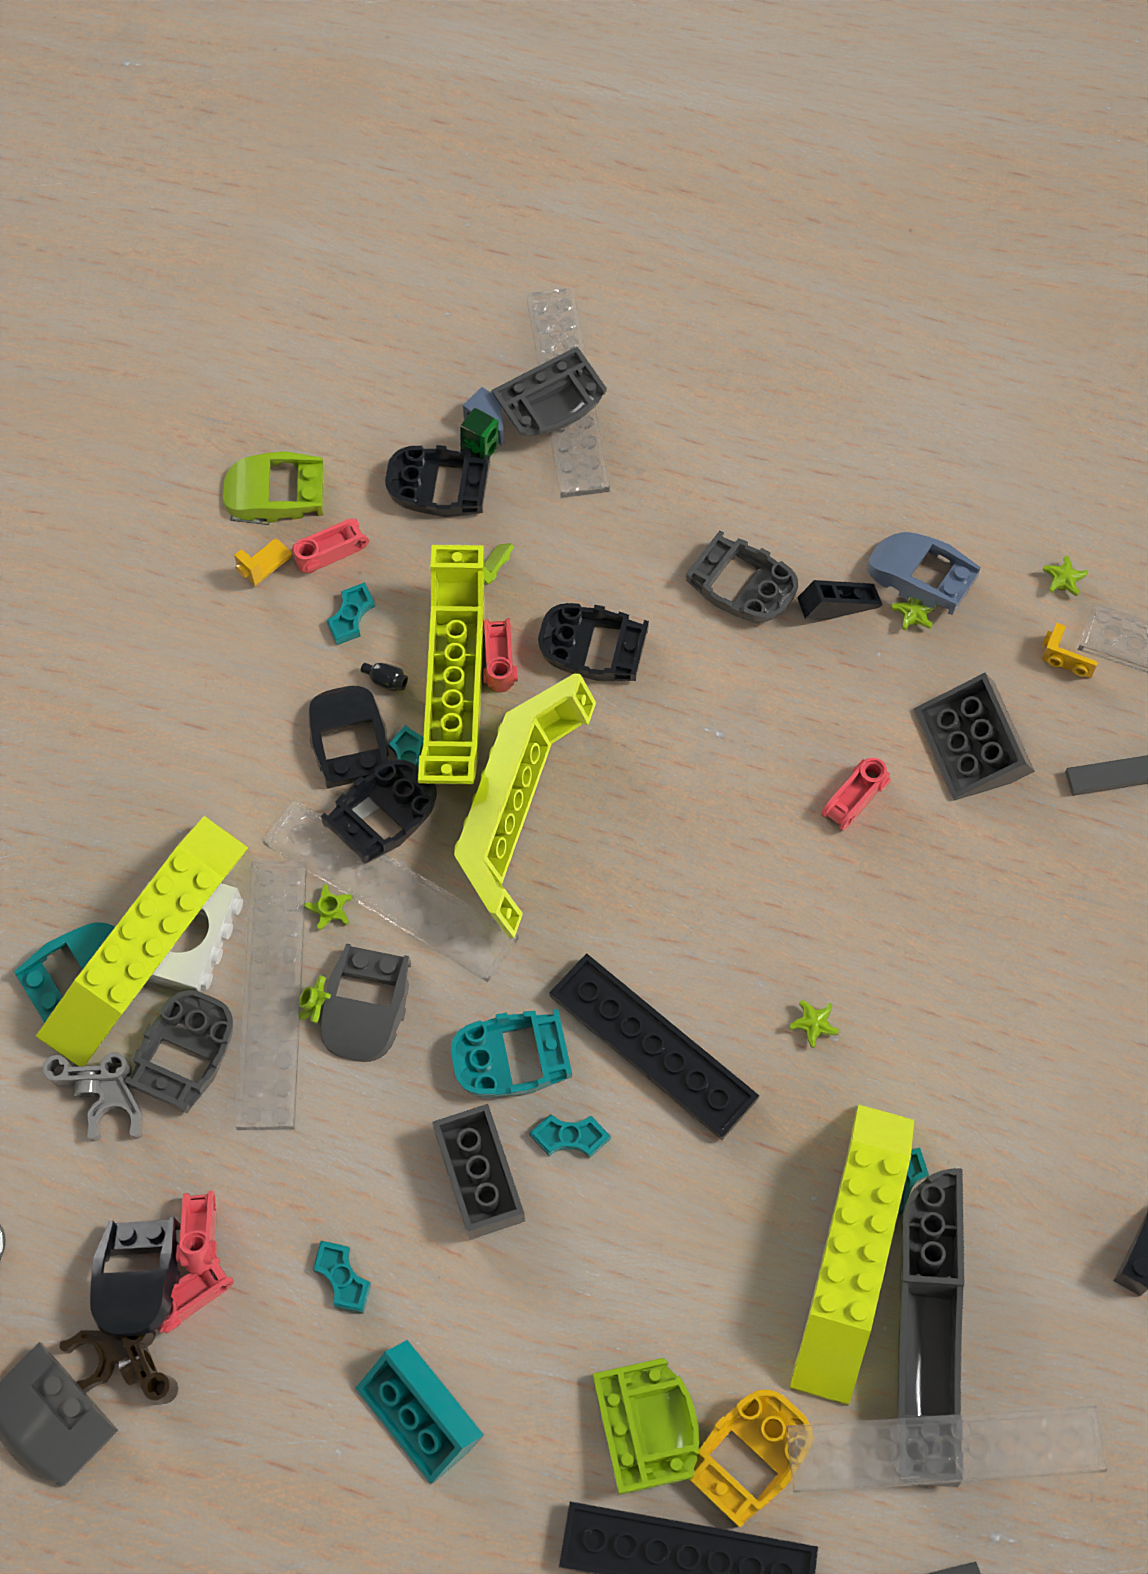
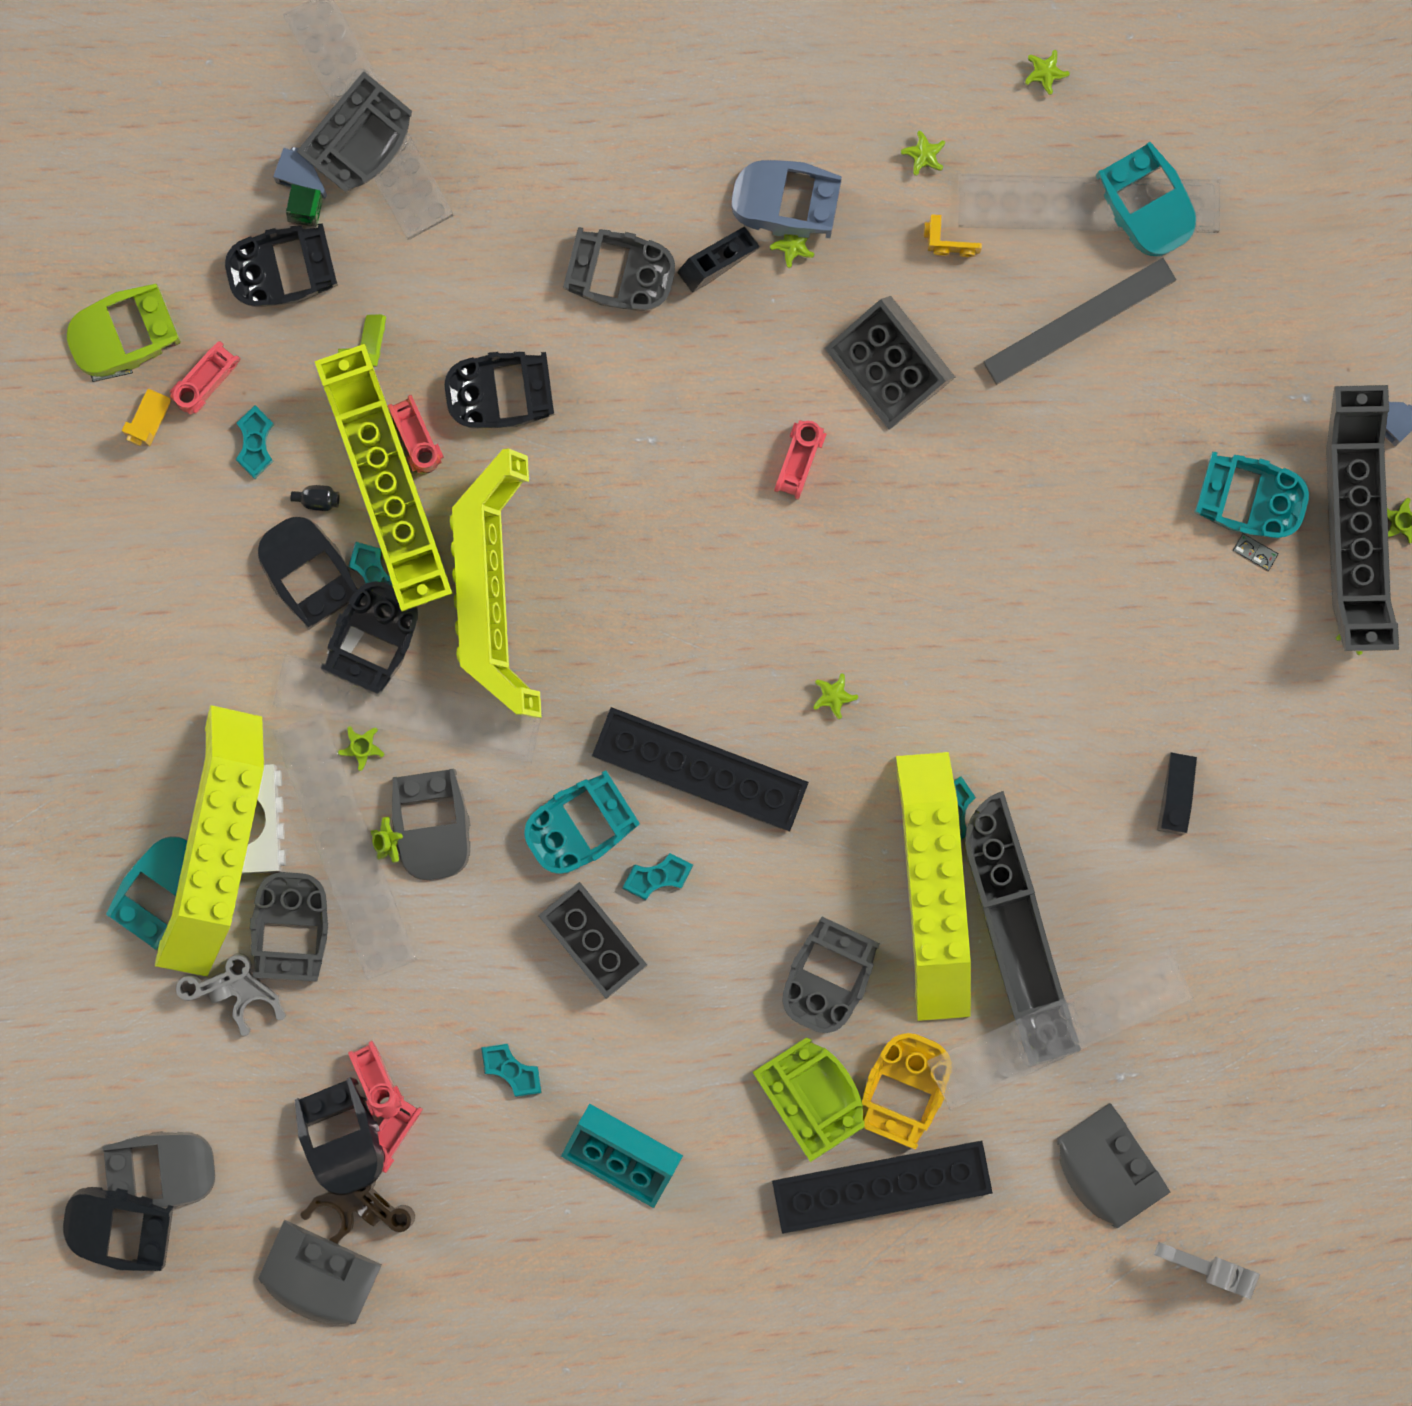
camera: 25 degrees left, 20 degrees up
(688, 1323) = (817, 1001): none -> dark grey slope

